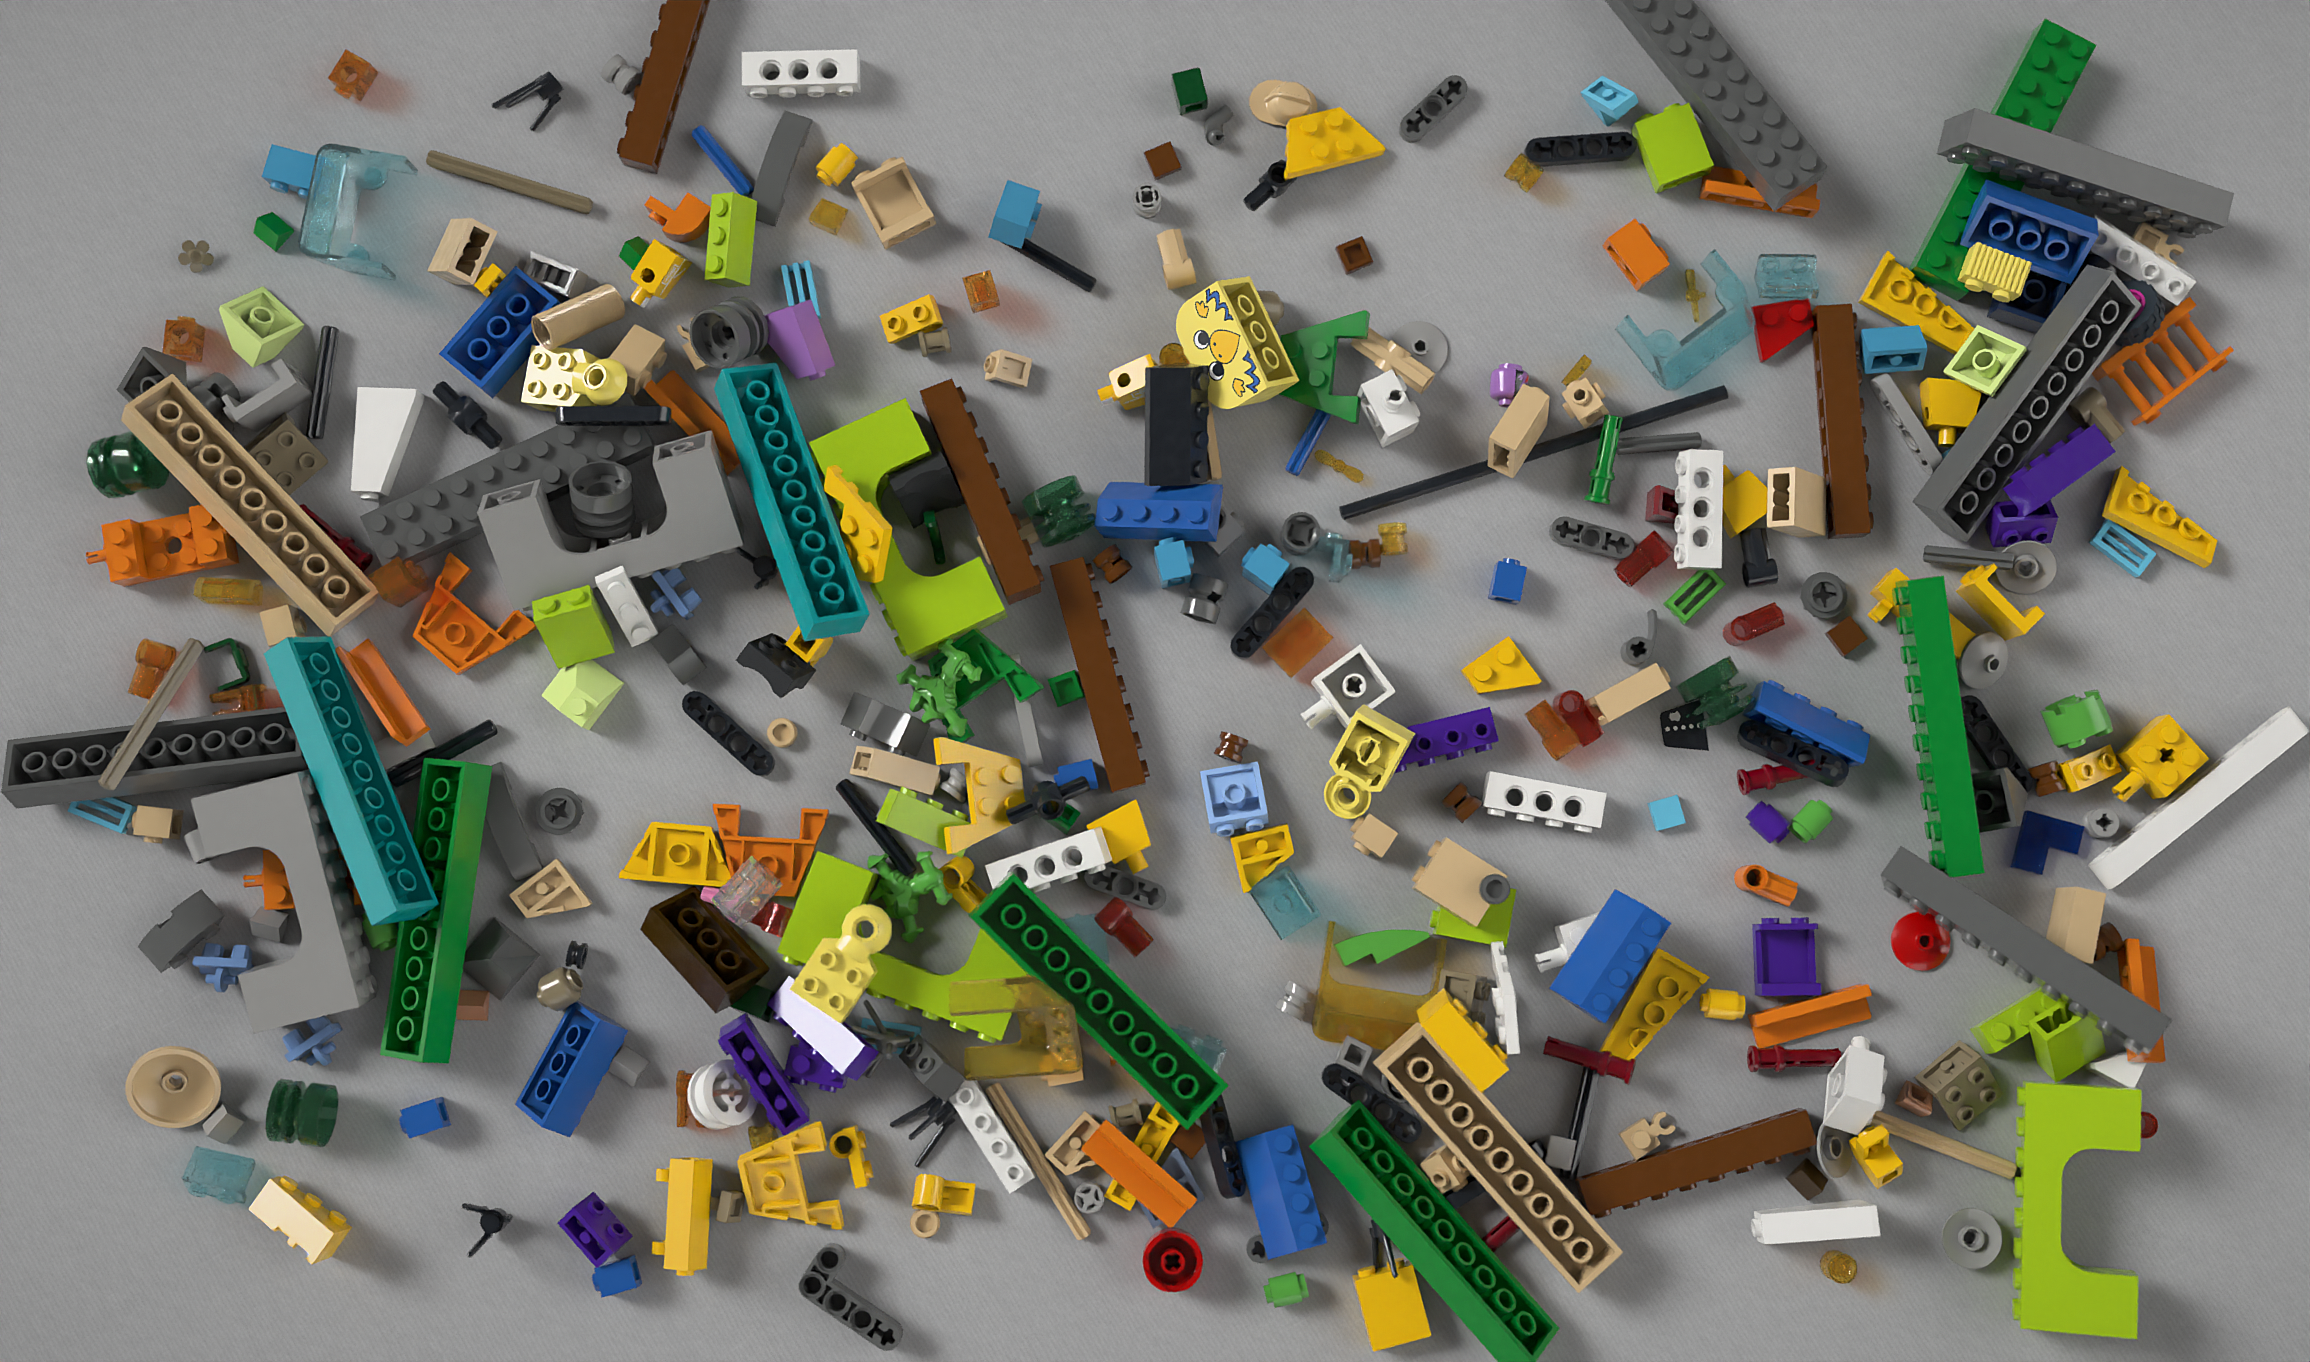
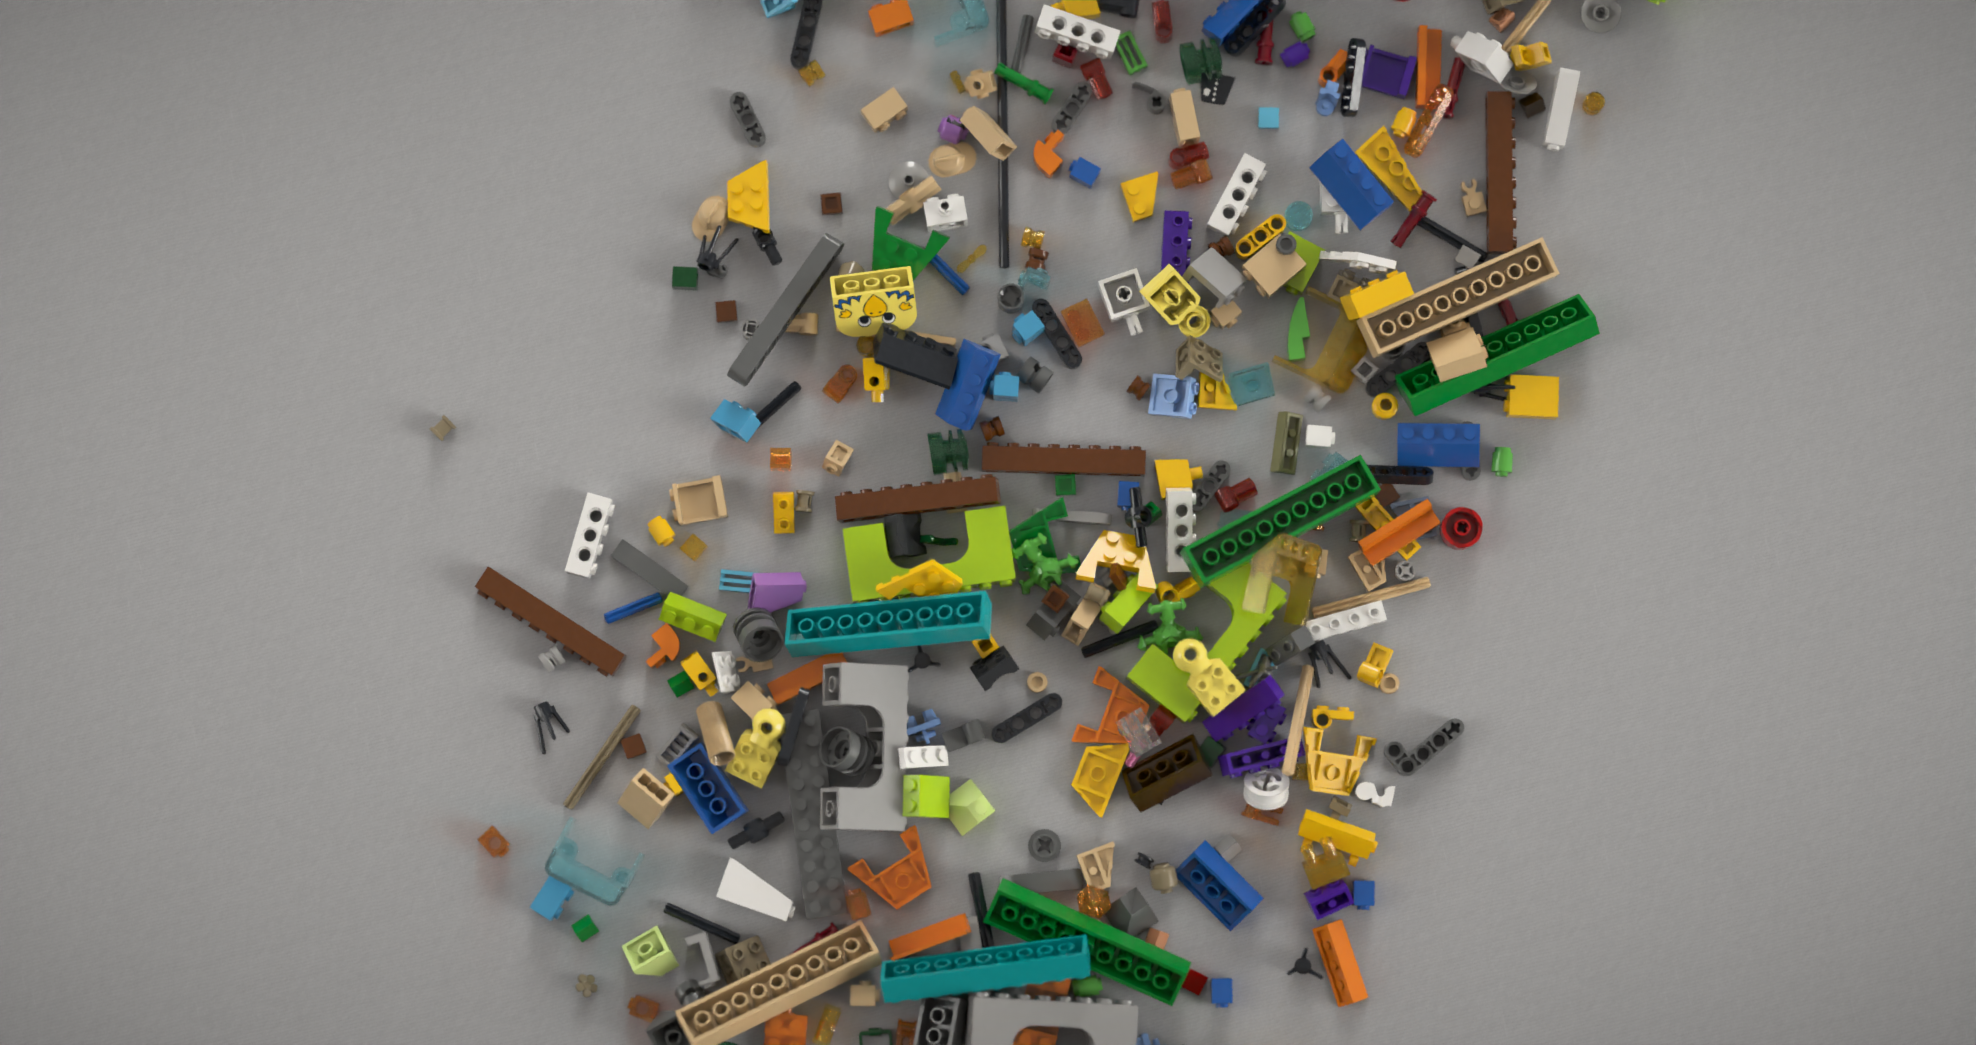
camera: 70 degrees left, 0 degrees up
(430, 1077) = (1194, 981): none -> red slope
(496, 902) = (1093, 901): none -> clear orange brick
(511, 1273) = (1340, 963): none -> orange panel
(536, 219) = (633, 746): none -> reddish brown tile
(637, 1211) = (1326, 866): none -> clear yellow brick
(668, 306) = (726, 671): none -> white hinge
(762, 1237) = (1368, 791): none -> white leg
(828, 1110) = (1298, 720): none -> tan axle
(899, 720) = (1055, 598): none -> reddish brown tile
(920, 774) = (1096, 594): none -> dark tan bush
(955, 797) = (1118, 576): none -> reddish brown tile
(1107, 339) = (837, 386): none -> clear orange piece
(1185, 232) = (785, 309): none -> dark grey beam
(1219, 976) = (1286, 443): none -> olive slope
(1223, 110) = (708, 260): none -> black plant
(1240, 1019) = (1319, 436): none -> white brick
(1299, 818) = (1197, 355): none -> dark tan bracket
(1312, 1098) = (1384, 406): none -> yellow head
(1416, 1181) = (1457, 354): none -> tan brick
(1419, 806) = (1217, 276): none -> light grey panel
(1467, 398) = (952, 159): none -> tan piece
(1504, 285) = (884, 110): none -> tan brick
(1510, 853) = (1264, 228): none -> yellow beam
(1512, 519) = (1044, 156): none -> orange brick
(1542, 896) = (1298, 216): none -> clear light blue wheel
(1720, 886) = (1327, 99): none -> medium blue hips
(1736, 1038) = (1429, 121): none -> clear orange beam
(1763, 913) = (1353, 77): none -> black beam

